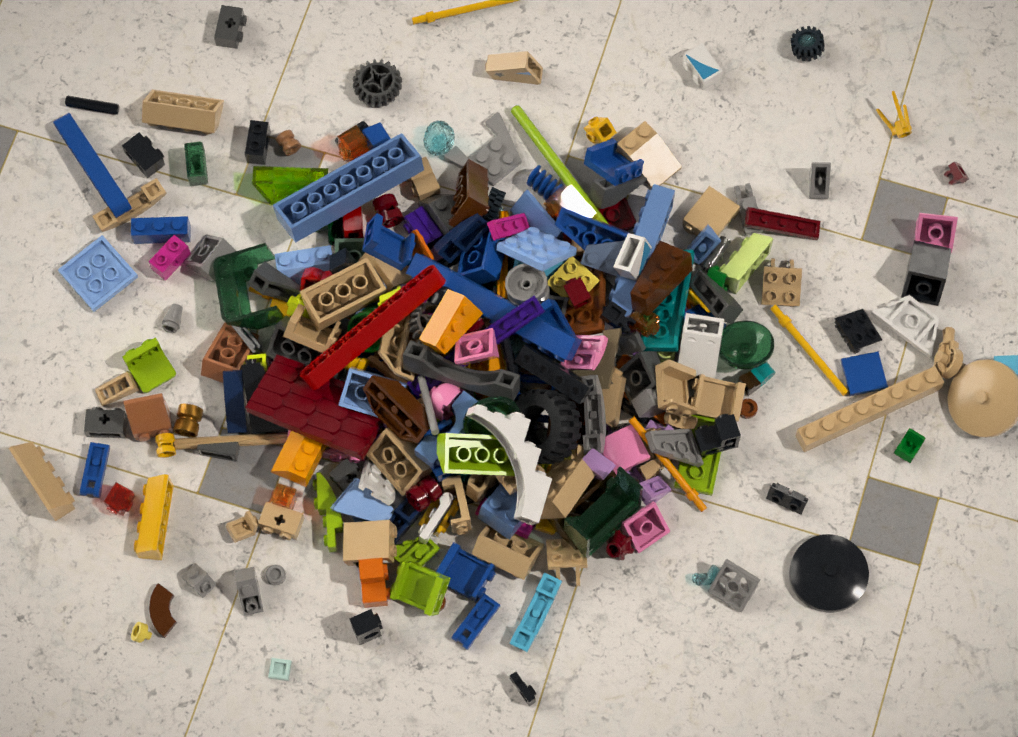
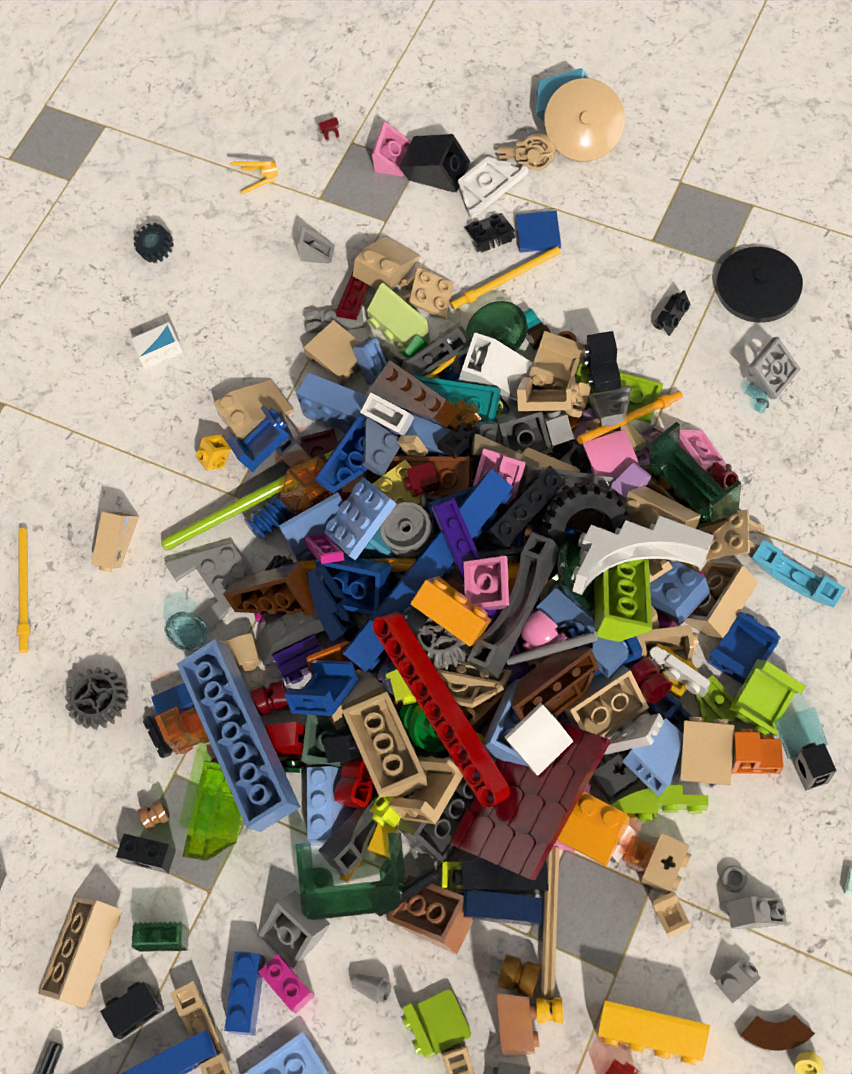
camera: 75 degrees left, 5 degrees down
(224, 450) = (564, 931): dark grey slope -> none
(355, 403) = (538, 739): none -> white slope
(397, 620) = (799, 731): none -> clear light blue piece
(476, 621) = (805, 643): blue plate -> none
(610, 284) = (412, 445): none -> tan tile
(807, 243) = (384, 263): none -> tan slope
(869, 409) = (581, 228): tan brick -> none
(909, 445) = (624, 197): green bracket -> none

